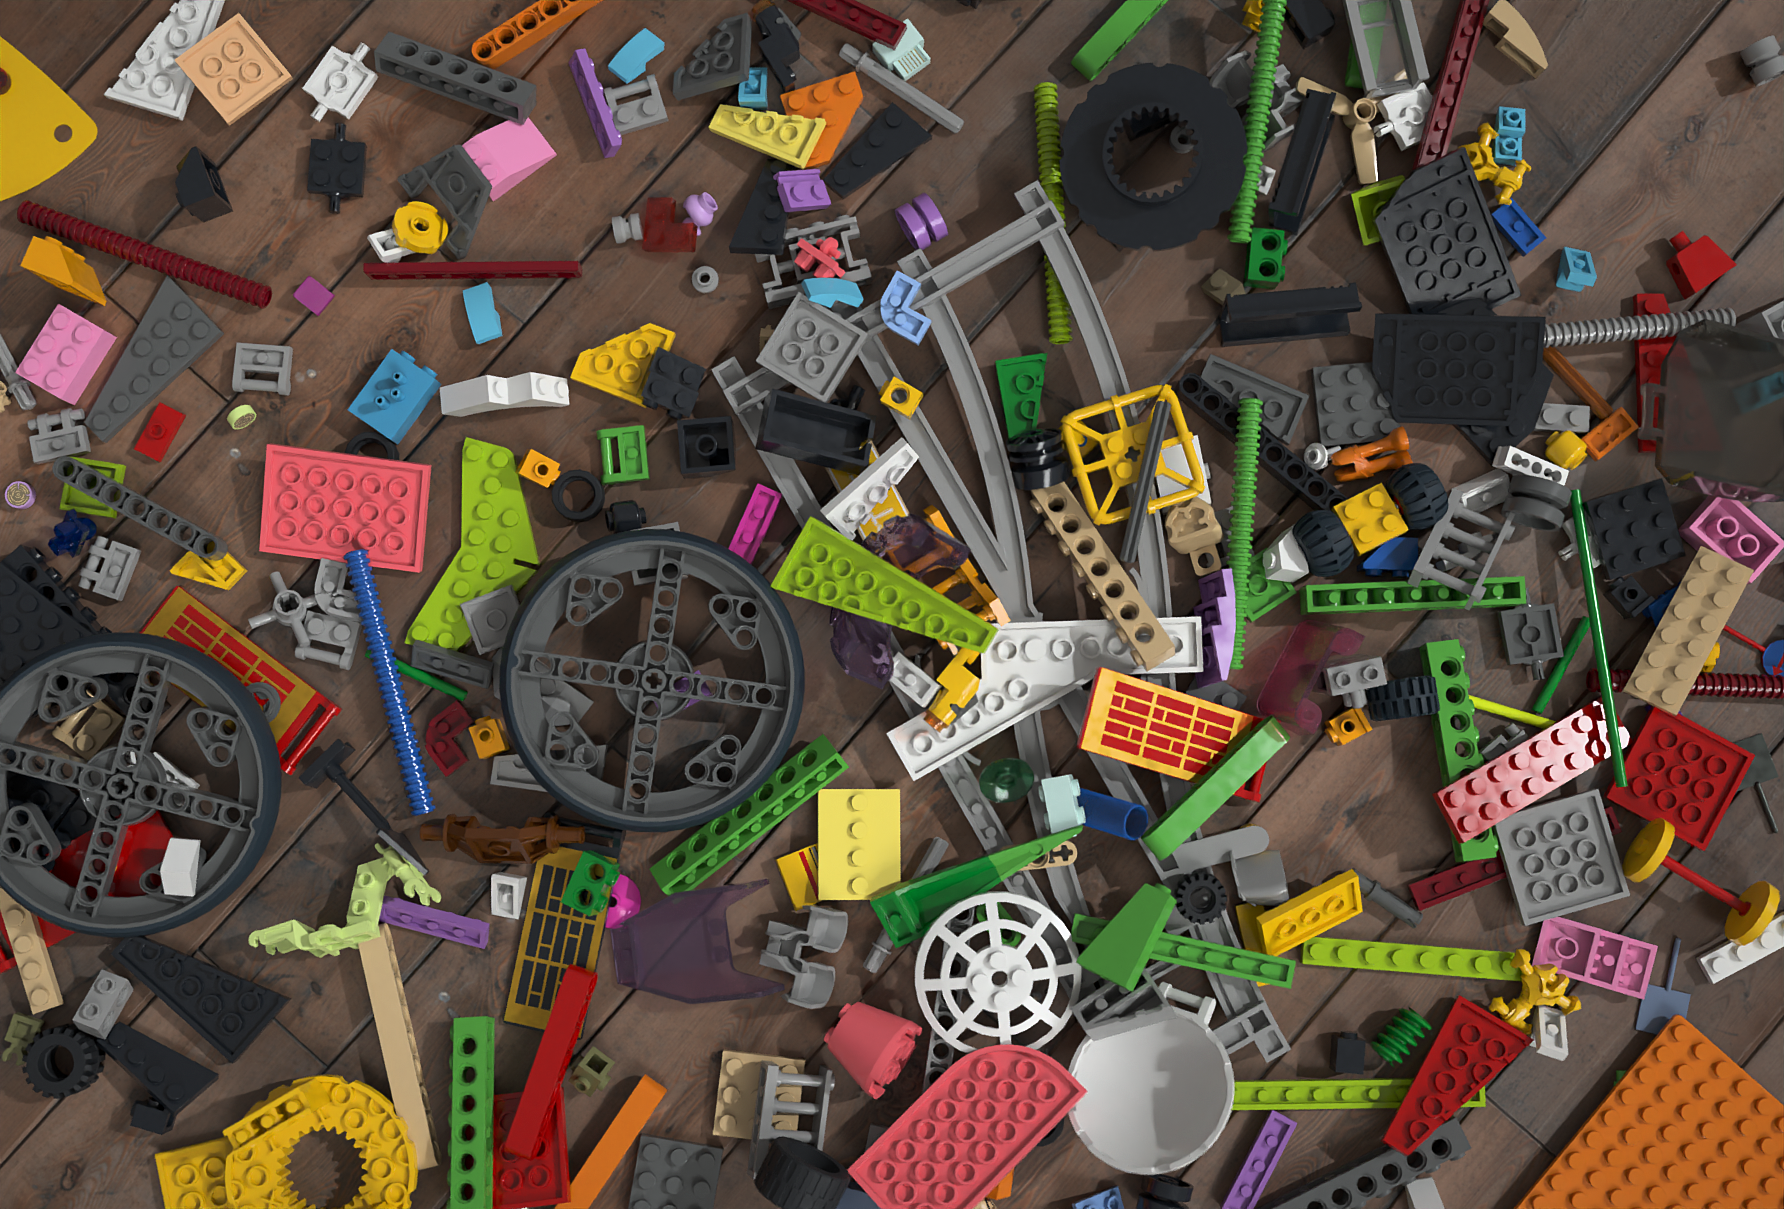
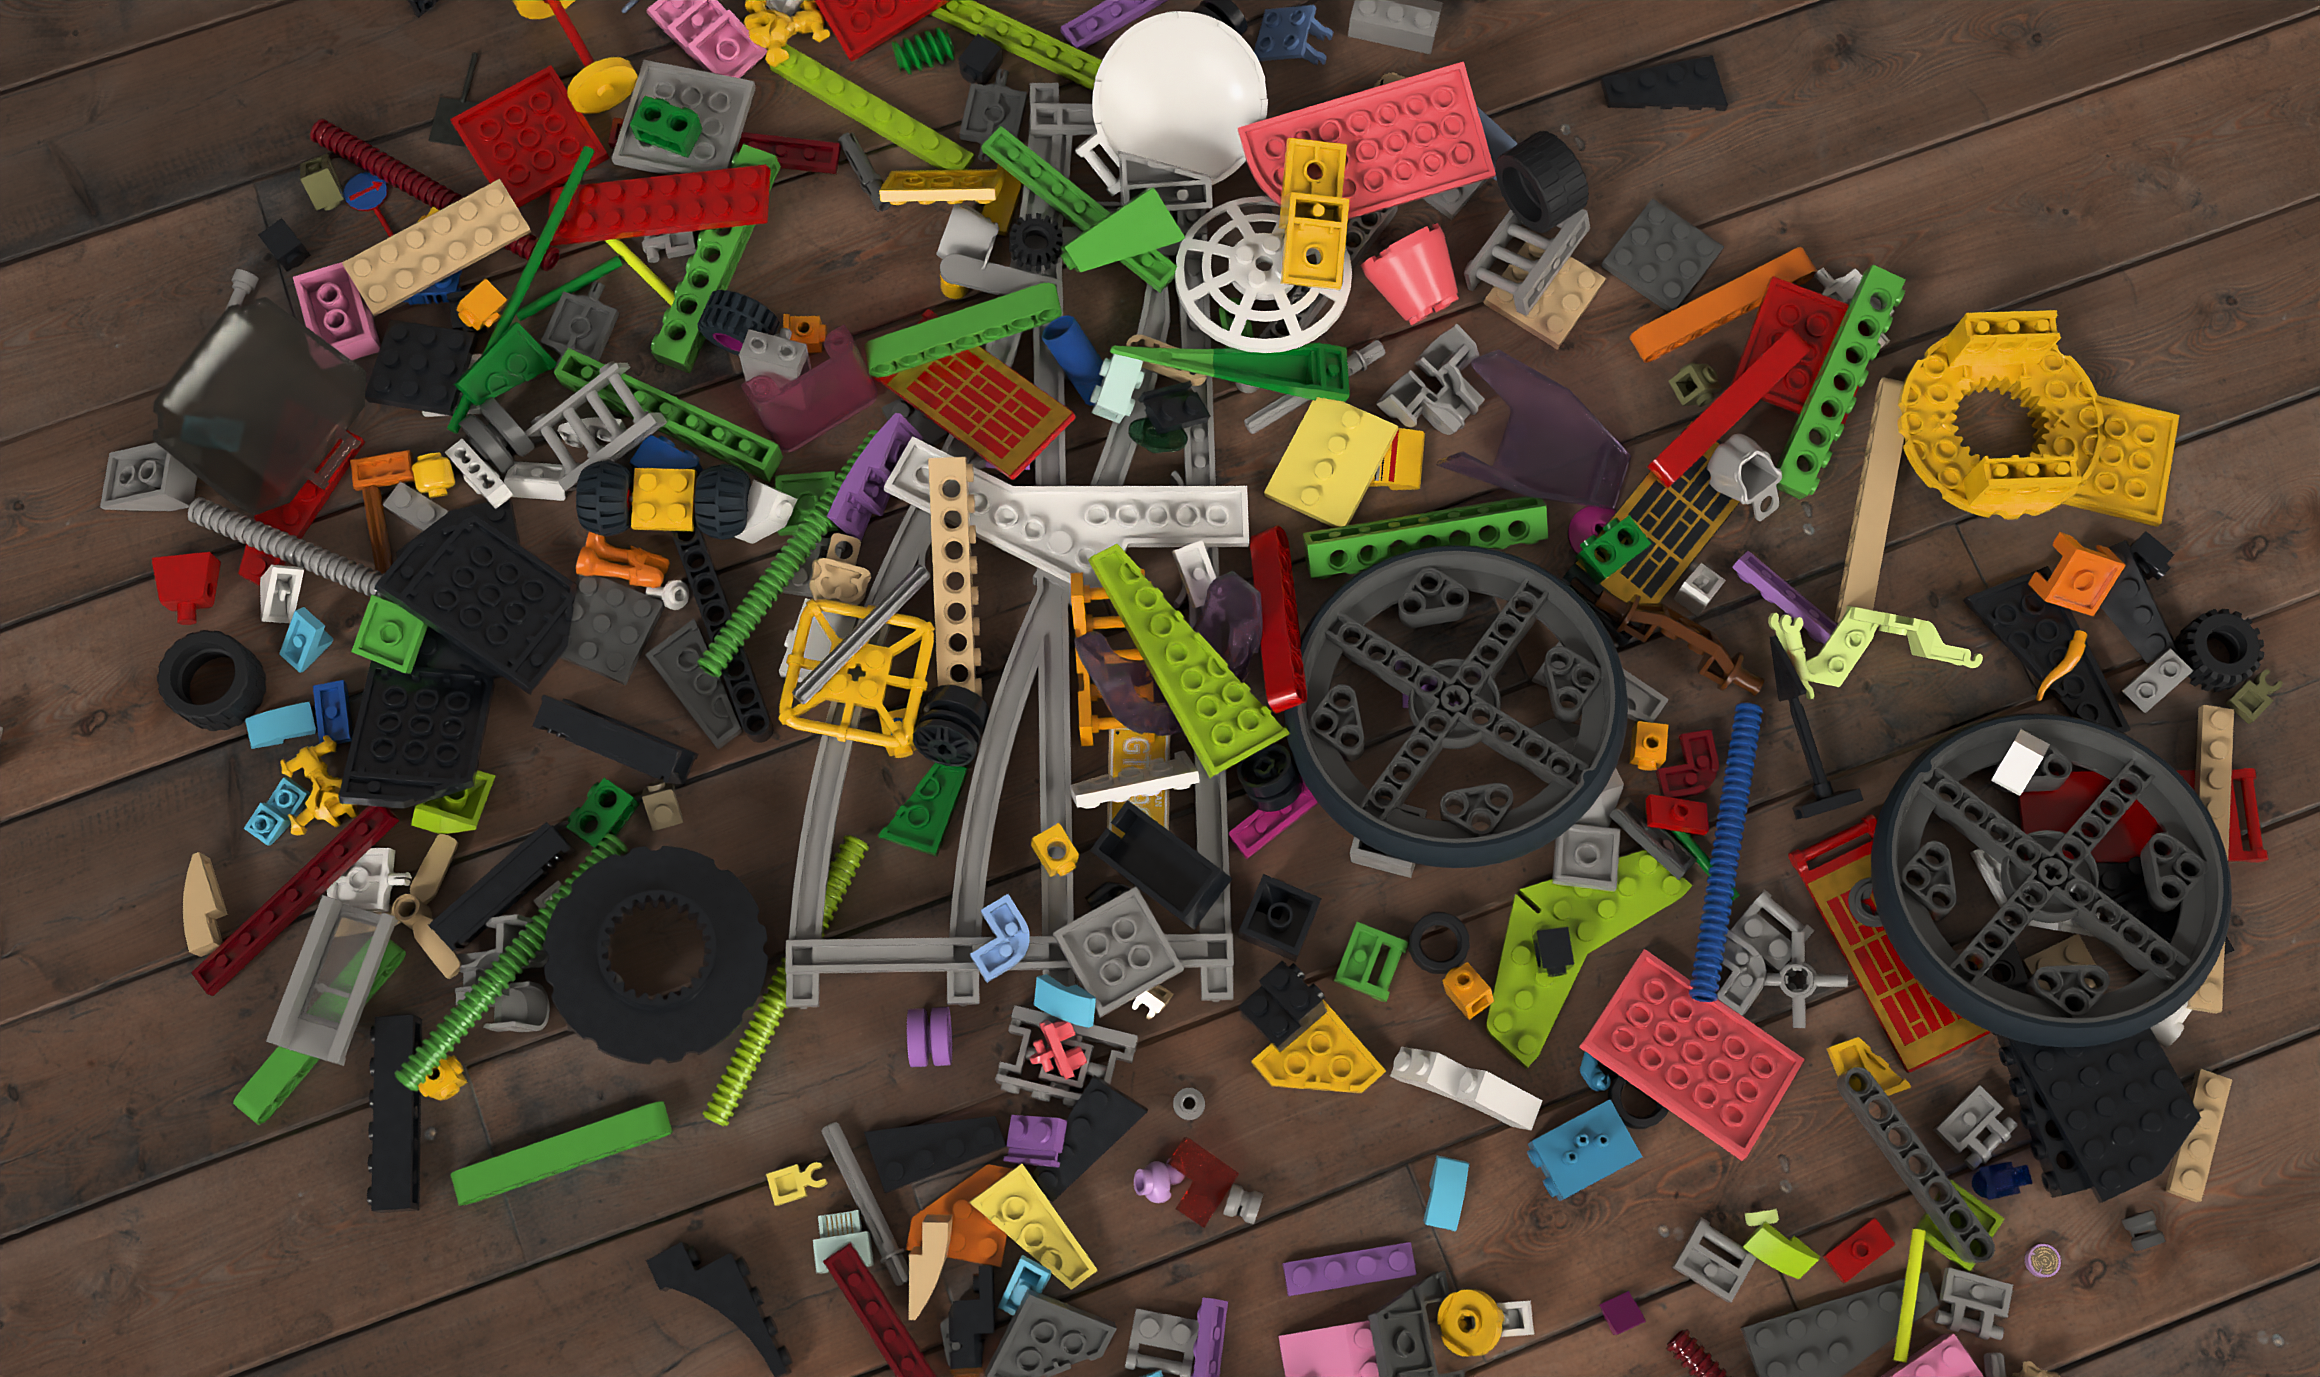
camera: 150 degrees left, 10 degrees down
(106, 413) = (1909, 1295): none -> neon yellow bar
(179, 995) = (2072, 657): none -> light orange animal
(196, 1057) = (2080, 577): none -> orange panel
(220, 395) = (1784, 1255): none -> lime slope
(412, 455) = (1593, 1074): none -> dark azure arm
(441, 692) = (1677, 814): none -> red plate
(473, 270) = (1434, 1246): dark red tile -> none
(485, 528) = (1553, 951): none -> black brick
(512, 1008) = (1745, 473): none -> light grey piece
(528, 224) = (1349, 1269): none -> medium lavender plate
(624, 516) = (1401, 893): black head -> none
(767, 548) = (1270, 778): none -> black wheel
(829, 678) = (1280, 632): none -> red beam
(832, 66) = (928, 1261): none -> tan slope
(958, 693) = (1161, 534): yellow plate -> none
(963, 73) = (790, 1183): none -> light yellow plate
(980, 1043) = (1313, 214): none -> yellow bracket
(1006, 812) = (1174, 407): none -> black plate
(1307, 1010) = (990, 108): none -> dark grey plate
(1511, 295) = (389, 635): none -> bright green plate
(1550, 198) = (280, 724): none -> medium azure slope
(1568, 564) = (507, 363): none -> green wing
(1570, 834) = (664, 131): none -> green brick
(1618, 290) = (280, 593): none -> white slope
(1618, 600) = (481, 306): none -> light orange brick
(1645, 177) = (187, 657): none -> black tyre

